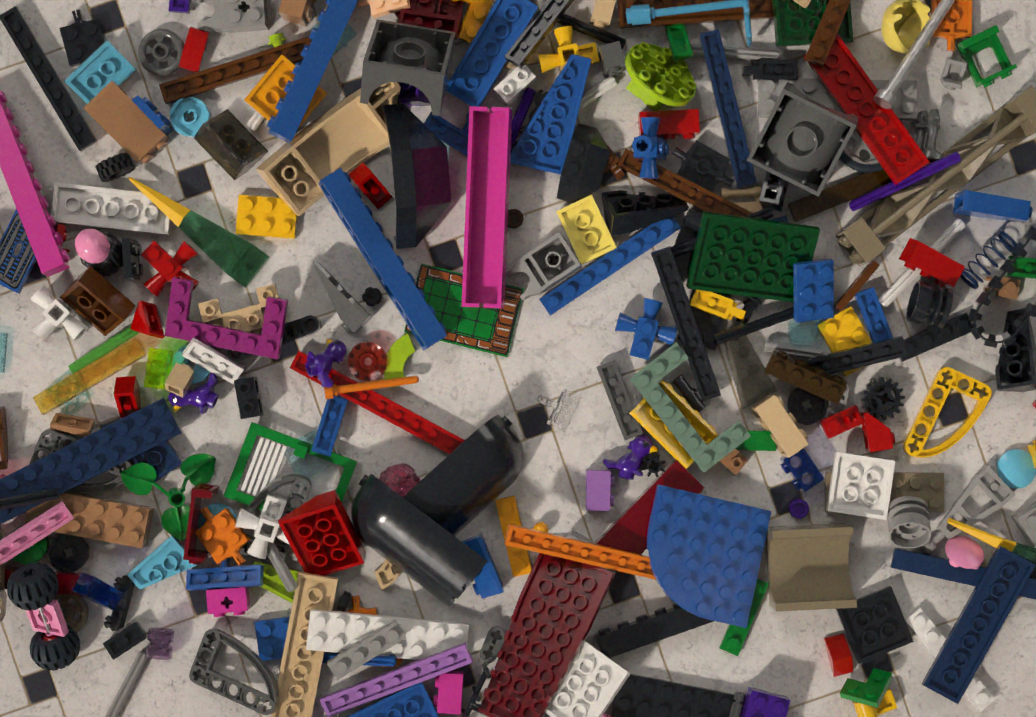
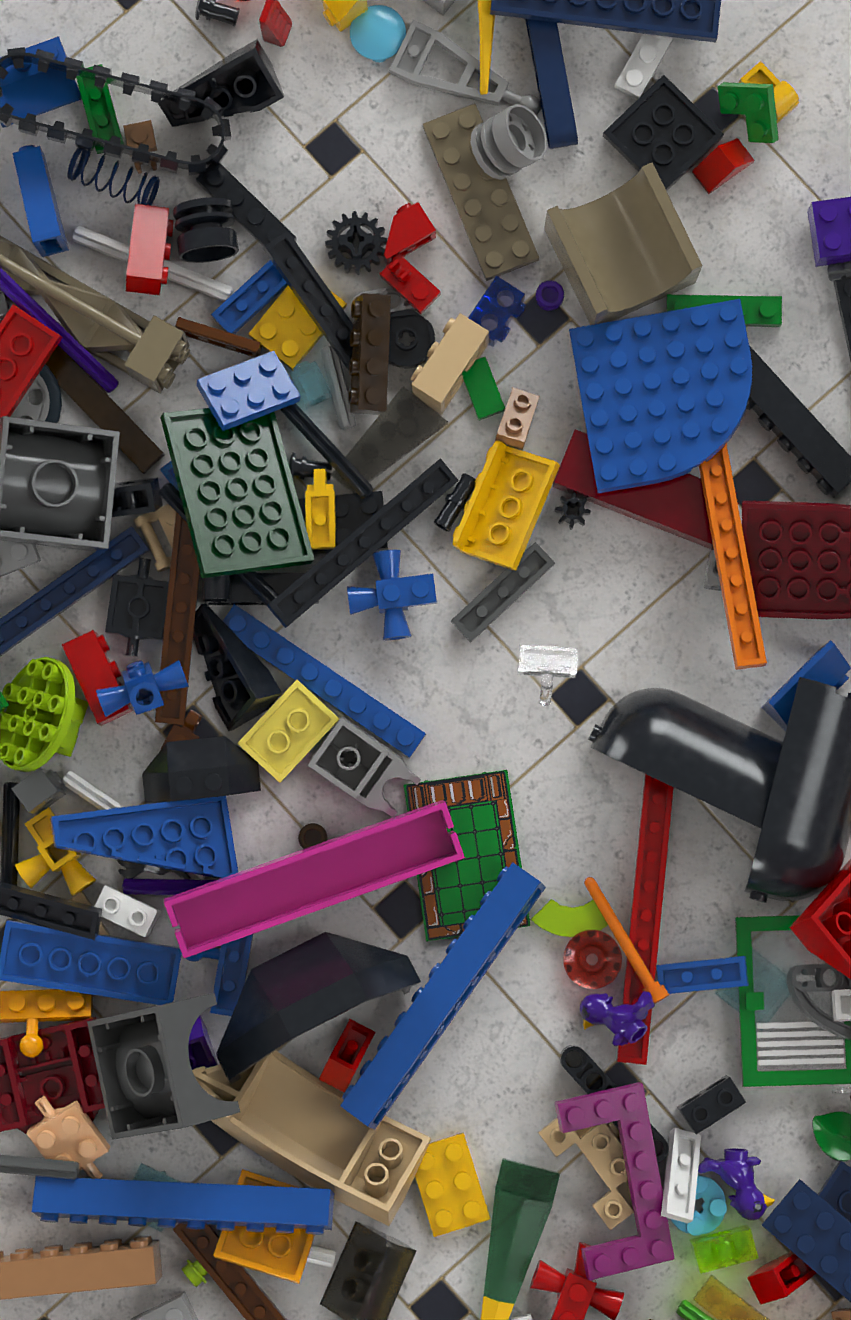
camera: 105 degrees left, 5 degrees down
(147, 320) = (663, 1293): red slope -> none
(179, 379) = (726, 1211): tan brick -> none
(347, 307) = (528, 1019): dark grey wedge -> none
(372, 301) = (504, 997): black plate -> none
(400, 478) = (736, 846): clear pink piece -> none
(509, 514) = (724, 677): light orange plate -> none
(598, 490) = (637, 570): medium lavender brick -> none
(630, 463) = (582, 542): dark purple animal -> none
(647, 384) = (466, 562): sand green plate -> none
(860, 485) = (486, 224): white plate -> none
(937, 404) = (334, 168): yellow beam -> none
(964, 552) = (518, 55): bright pink dish -> none

